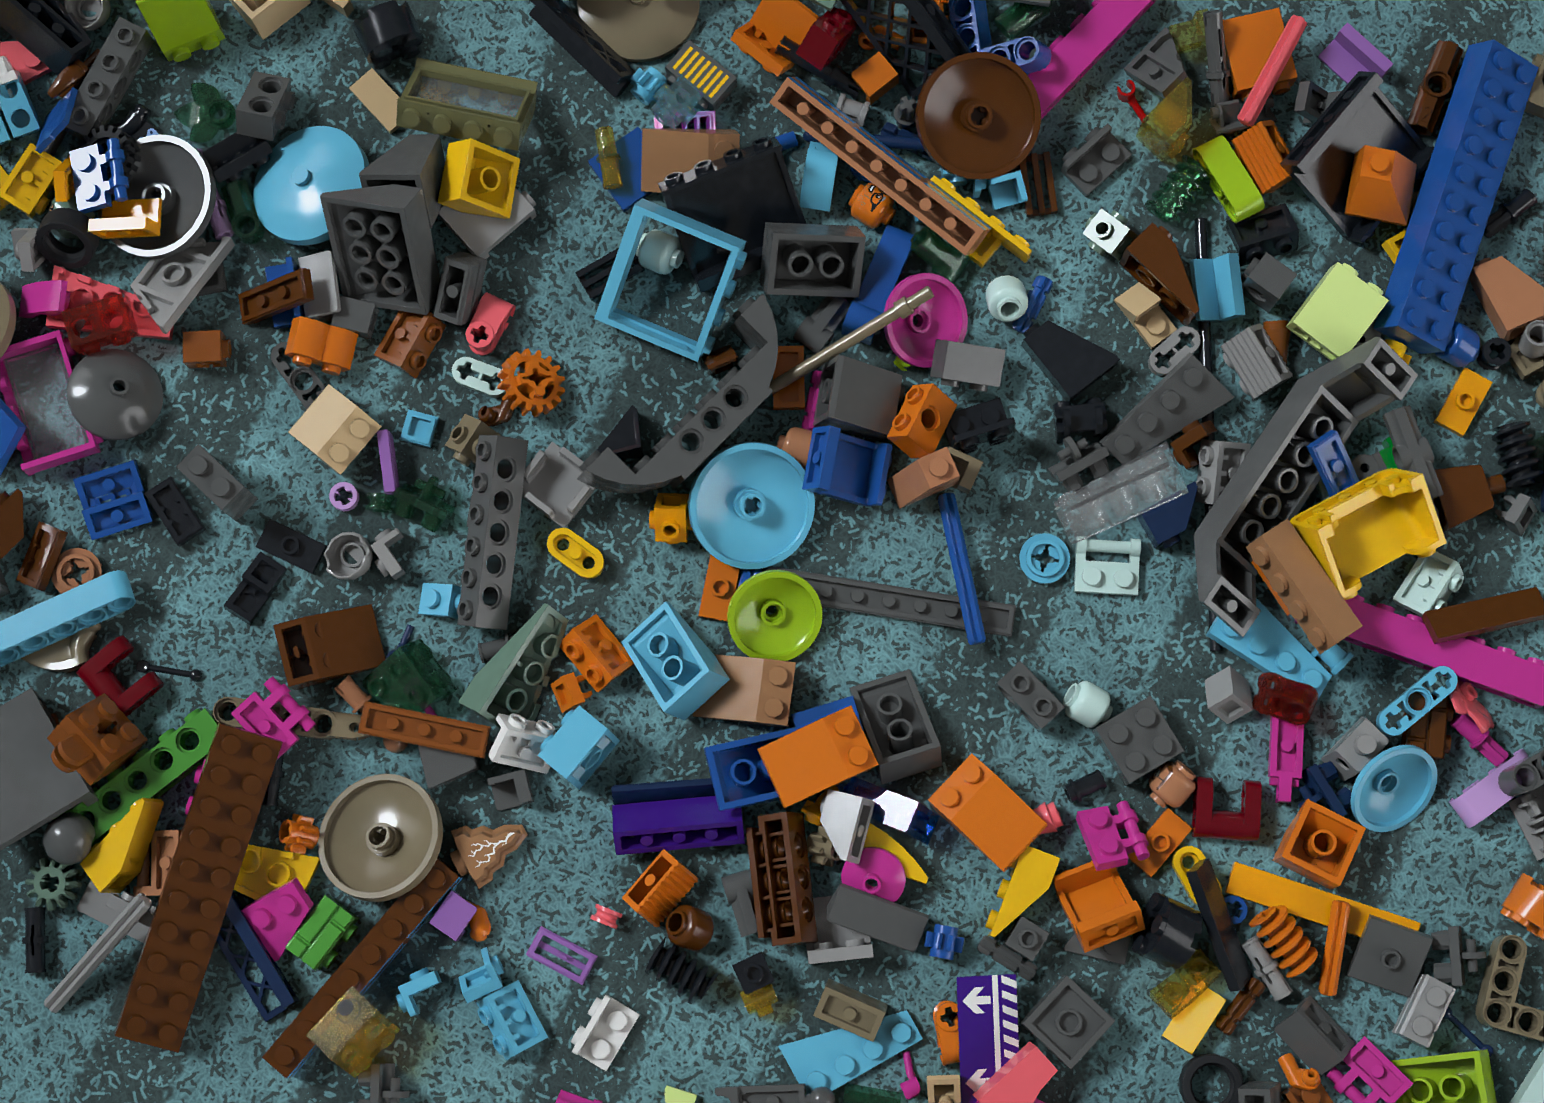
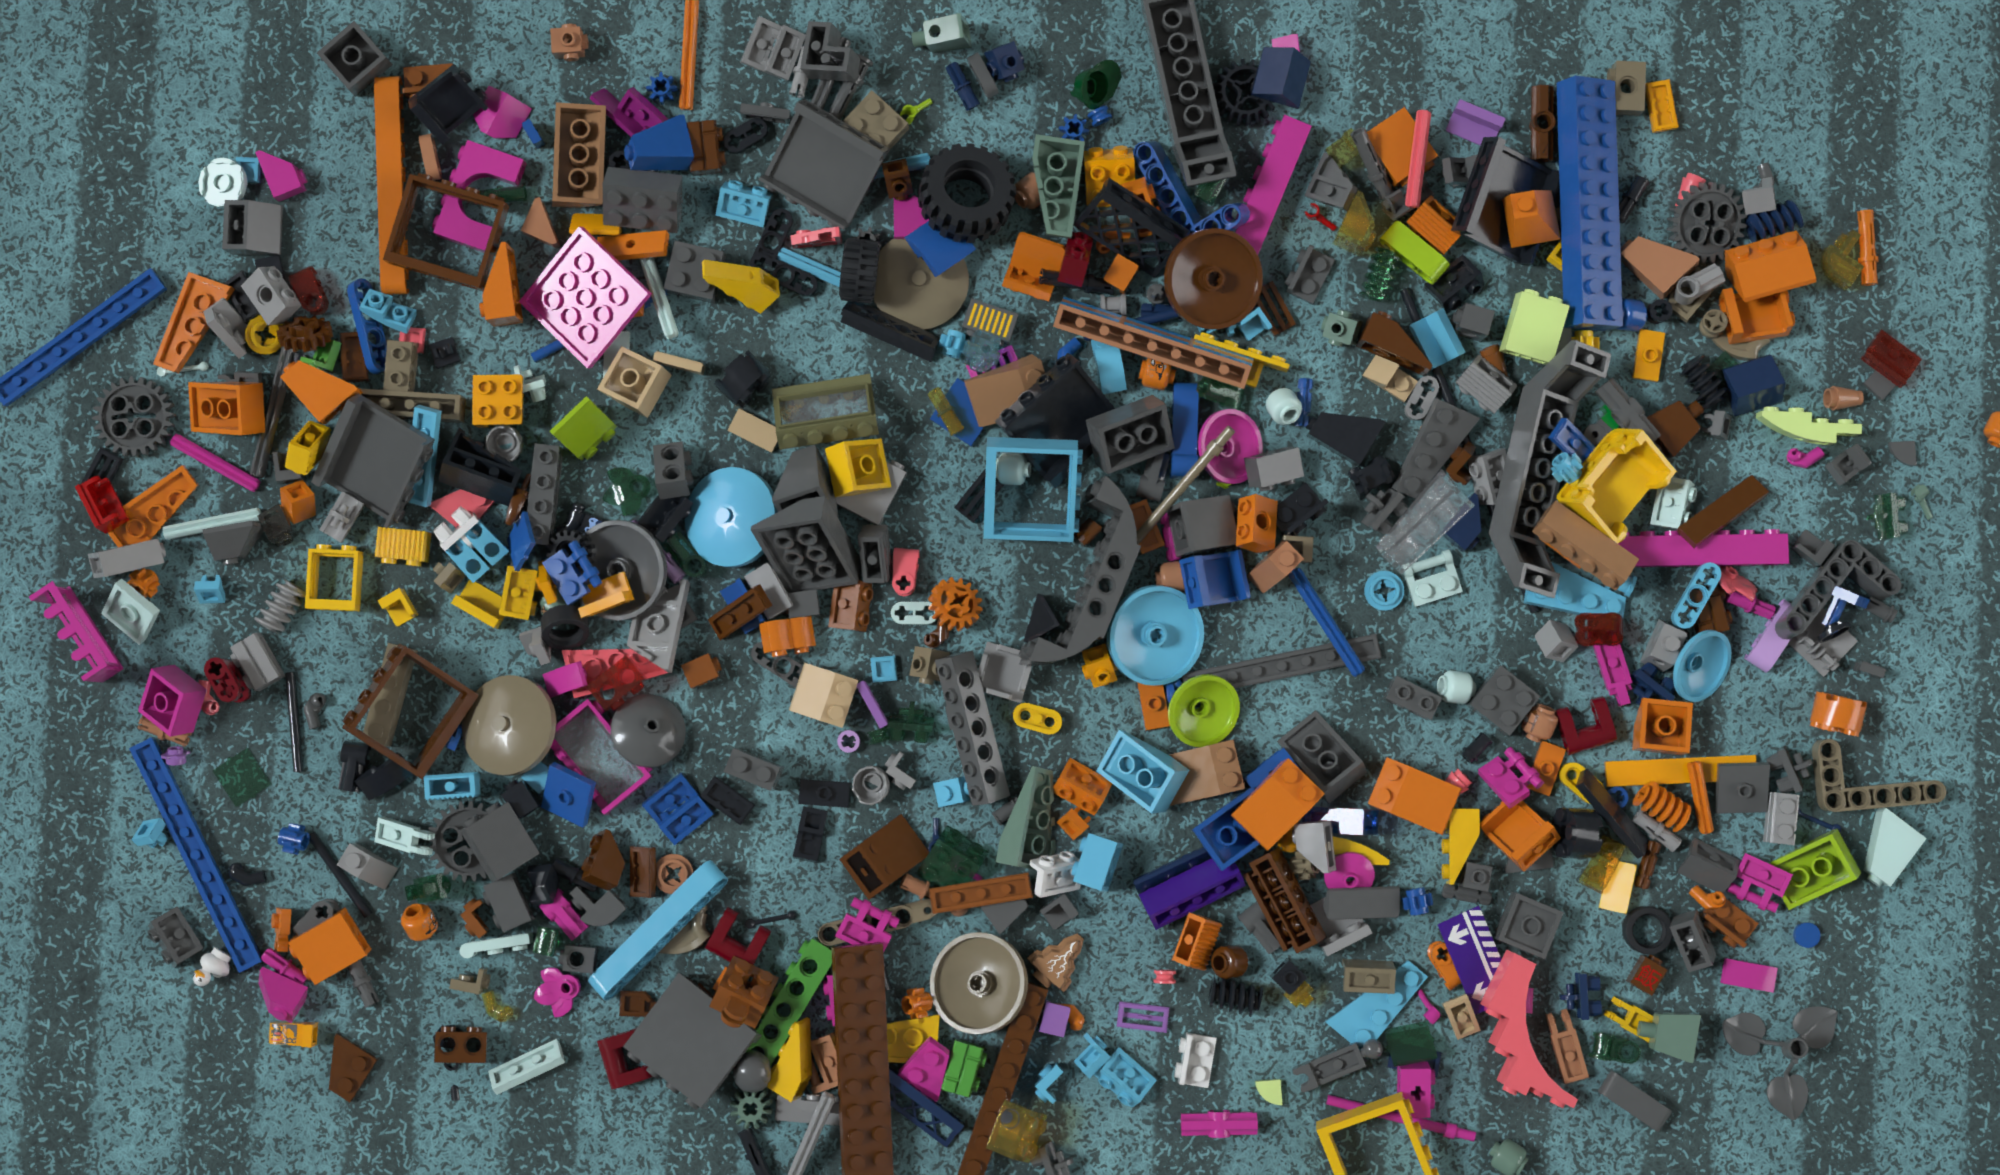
camera: 20 degrees left, 5 degrees up
(1315, 489) = (1566, 467): none -> medium azure gear

